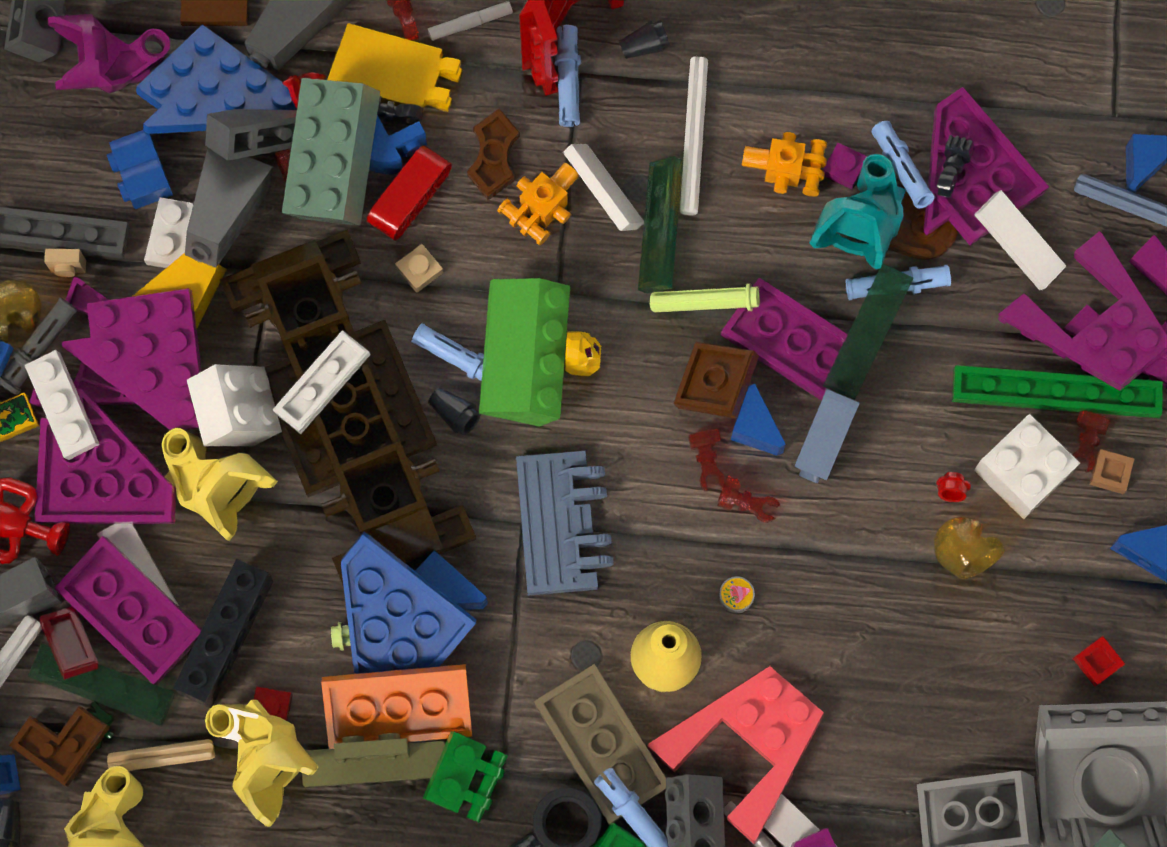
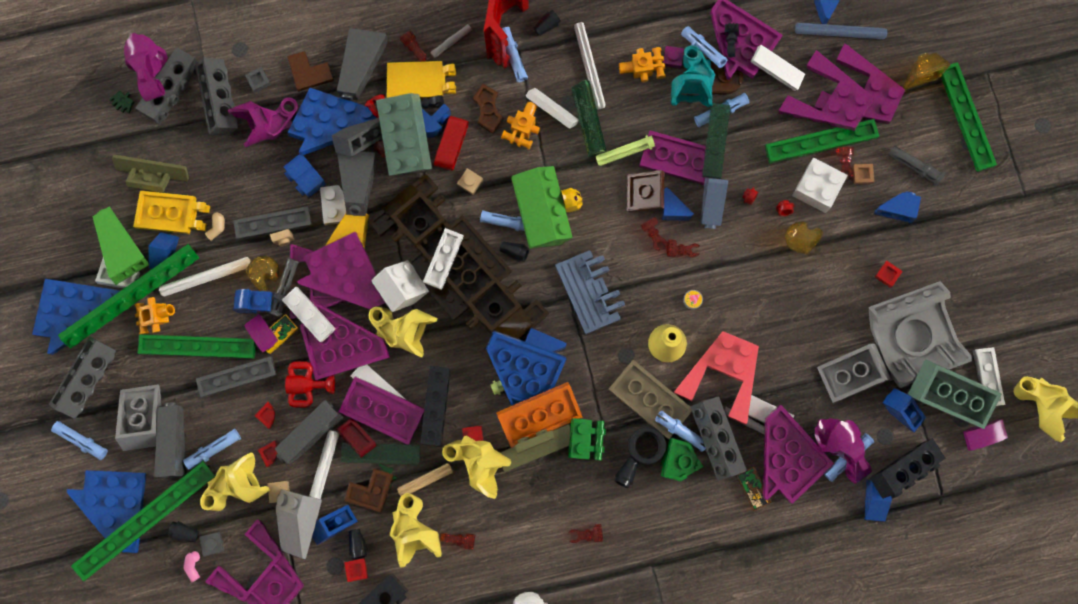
camera: 15 degrees left, 5 degrees up
(898, 446) = (750, 195): none -> red plate

